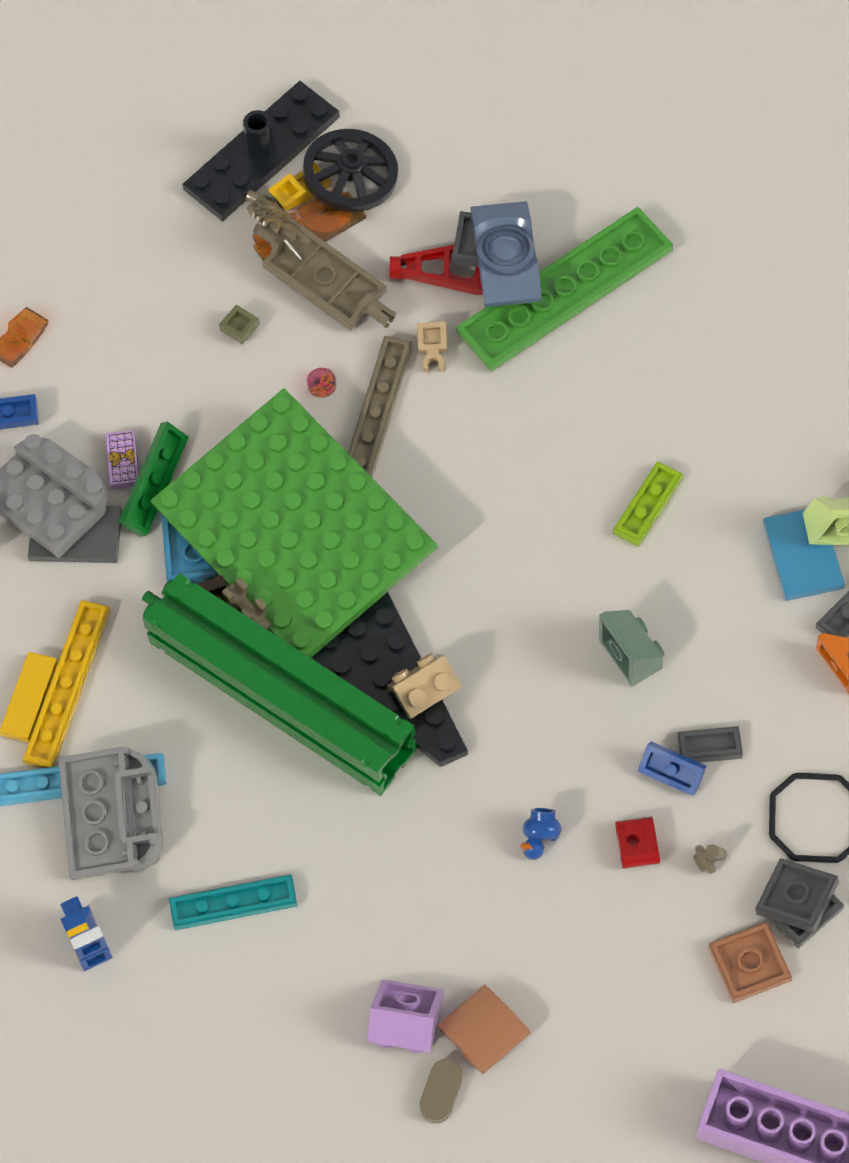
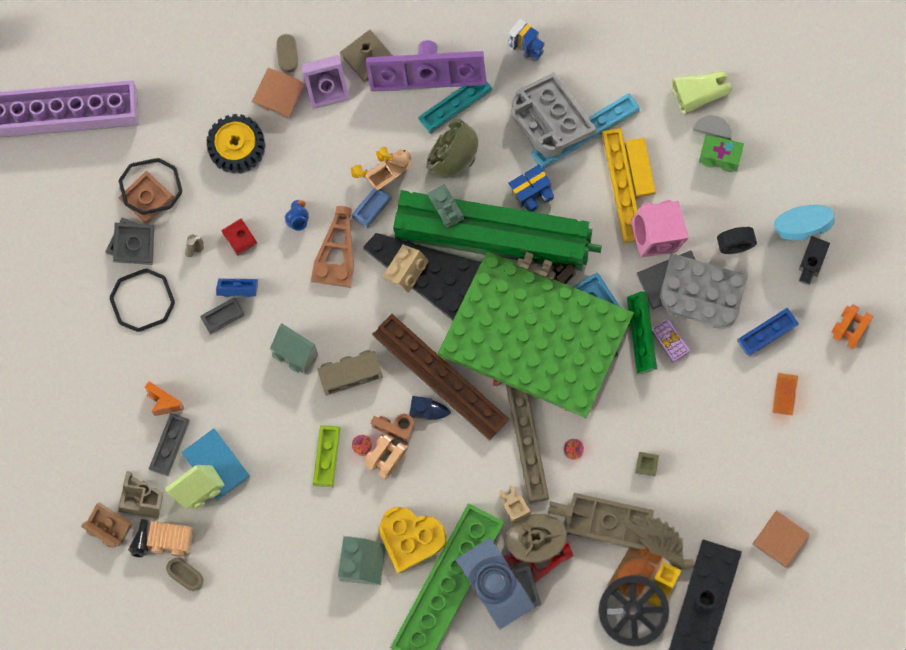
camera: 155 degrees right, 10 degrees up
(54, 584) = (659, 228): none -> bright pink brick
(127, 181) = (781, 539): none -> nougat tile
(179, 723) = (530, 187): none -> blue hips
(247, 955) = (426, 69): none -> medium lavender plate
(263, 807) = (454, 150): none -> olive cylinder
(324, 1032) = (365, 46): none -> dark tan tile
(326, 718) = (445, 206): none -> sand green plate
(380, 830) = (390, 167): none -> light nougat torso
(406, 276) = (536, 538): none -> dark tan piece
(427, 805) = (371, 207): none -> medium blue tile
(443, 521) = (441, 377): none -> reddish brown plate
(485, 508) = (427, 409): none -> dark blue plate
(525, 734) = (332, 273): none -> nougat plate
(542, 494) = (383, 425): none -> nougat plate
(566, 588) = (350, 372): none -> dark tan brick
(569, 465) = (374, 458): none -> light nougat brick
(582, 1002) = (239, 157): none -> wheel
(586, 353) = (410, 537): none -> yellow plate
(594, 498) = (361, 445): none -> clear pink tile
(664, 357) = (361, 561): none -> sand green slope
(728, 1017) = (156, 209): none -> black piece

